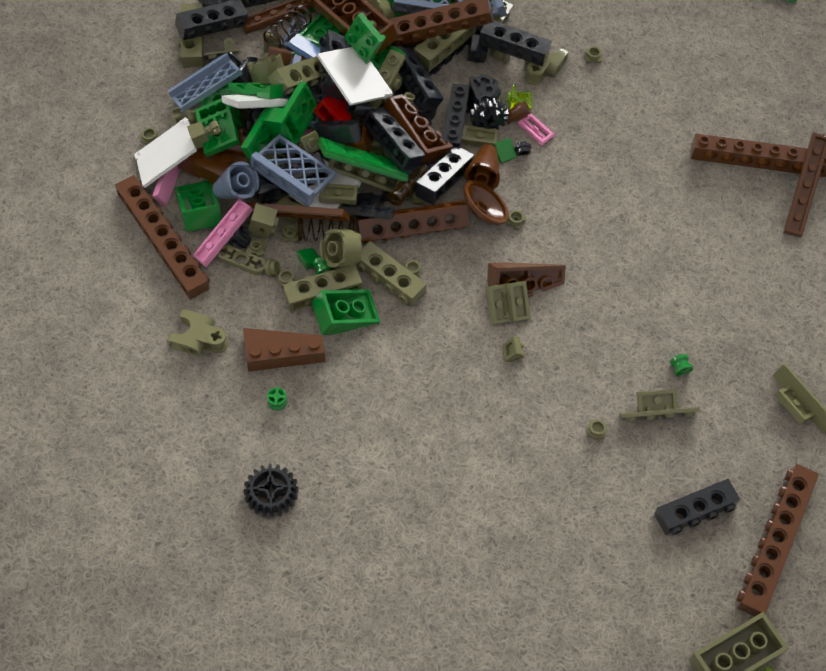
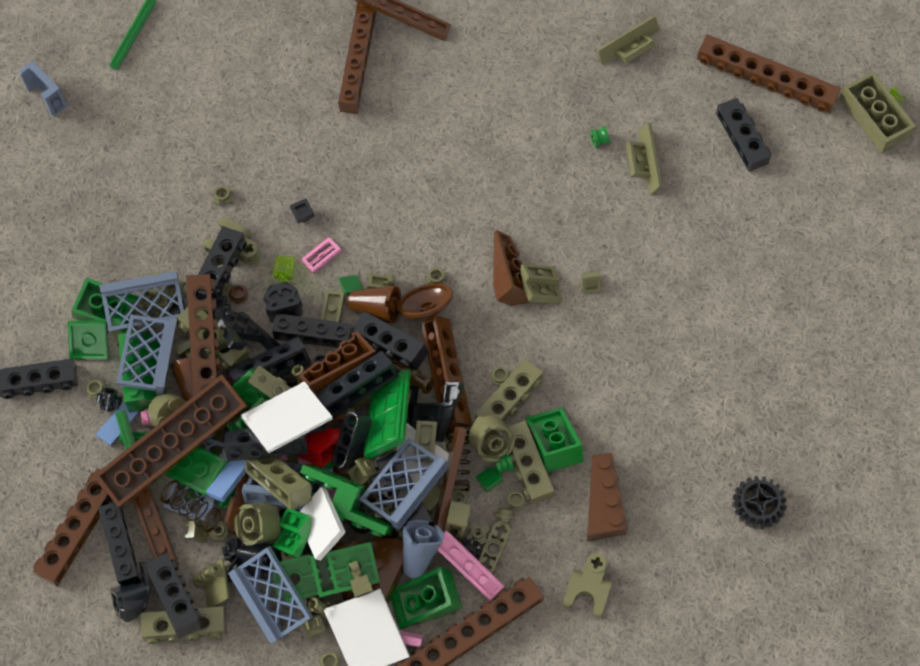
camera: 85 degrees left, 5 degrees up
(271, 92) = (313, 504): green slope -> none
(277, 394) = (659, 497): green wheel -> none
(364, 38) = (246, 401): green plate -> none
(456, 59) = (241, 327): none -> black wing
(489, 114) = (312, 295): black gear -> none
(494, 68) = (238, 293): none -> reddish brown plate
(508, 172) = (378, 280): none -> olive bracket
(518, 112) = (303, 270): reddish brown cone -> none
(523, 148) = (348, 267): black plate -> none
(578, 110) = (302, 211): none -> black tile
(597, 429) = (669, 213): olive plate -> none

